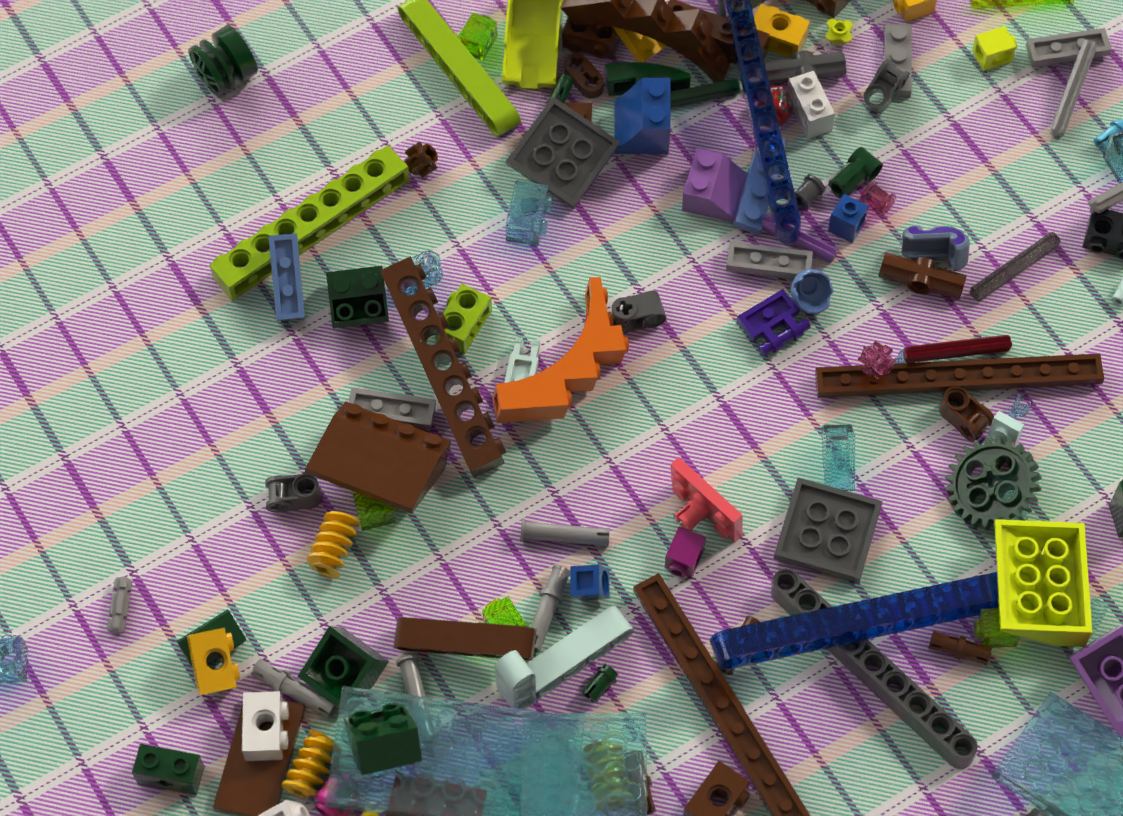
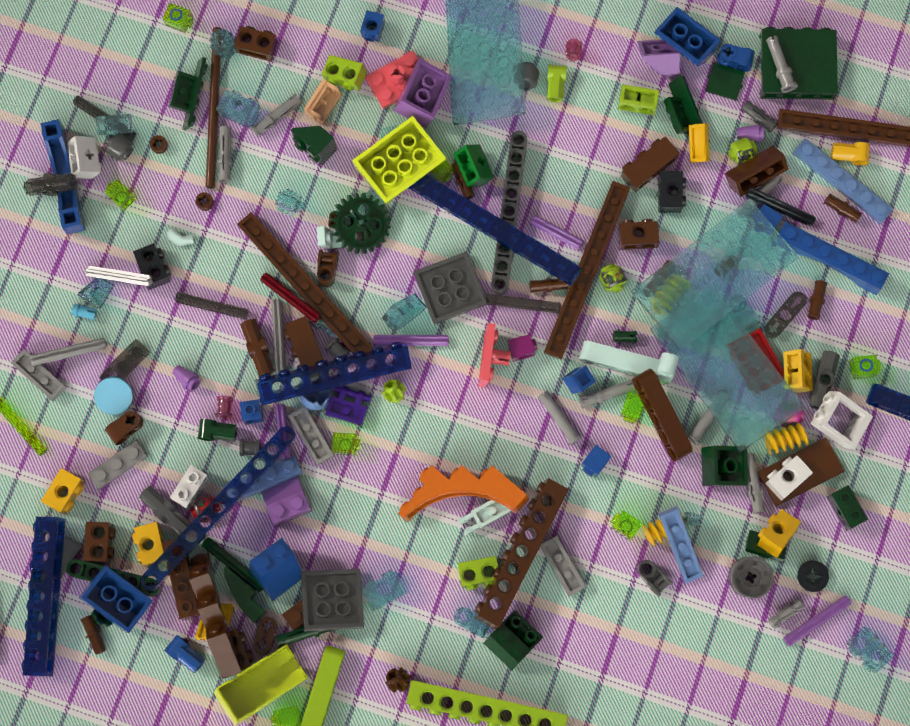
camera: 125 degrees left, 15 degrees up
(79, 633) = (817, 621): none -> medium lavender axle
(131, 656) = (819, 569): none -> black gear
(193, 575) = (761, 582): none -> flat silver wheel
(286, 277) = (536, 686): medium blue container -> none
(298, 538) = (680, 544): none -> medium blue plate
(317, 585) = (692, 518): none -> clear light blue bush
(379, 457) = (602, 541): reddish brown slope -> none
(383, 738) = (752, 404): dark green slope -> none
(477, 532) = (595, 461): none -> blue brick
(639, 311) = (397, 479): dark grey piece -> none
(685, 725) = (613, 278): none -> lime head
(729, 286) = (345, 444): none -> clear neon green brick
(739, 600) = (523, 303): none -> clear smoke axle
(749, 377) = (393, 391): none -> lime gear
(797, 443) = (411, 340): none -> medium lavender axle
(801, 707) = (556, 232): none -> medium lavender axle
(838, 274) = (400, 362): none -> clear blue brick
(839, 37) = (128, 513): neon yellow plate -> none
(848, 355) = (337, 348): none -> dark grey bush
(876, 360) = (335, 328): clear pink gear -> none
(880, 322) = (304, 342): none -> reddish brown brick
(885, 84) = (144, 453): dark grey piece -> none
(919, 308) = (278, 335): none -> light grey axle
(935, 90) = (122, 428): none -> reddish brown piece
(936, 244) = (230, 352): sand blue animal -> none
(943, 184) = (187, 378): none -> medium lavender cone
(983, 99) = (113, 395): none -> medium azure tile
(984, 667) = (473, 165): none -> green brick
(994, 48) = (70, 414): neon yellow brick -> none
(1014, 138) = (127, 360): none -> clear smoke hinge
(1019, 409) = (303, 245): clear light blue hand -> none
(1084, 427) = (289, 202): none -> clear light blue head

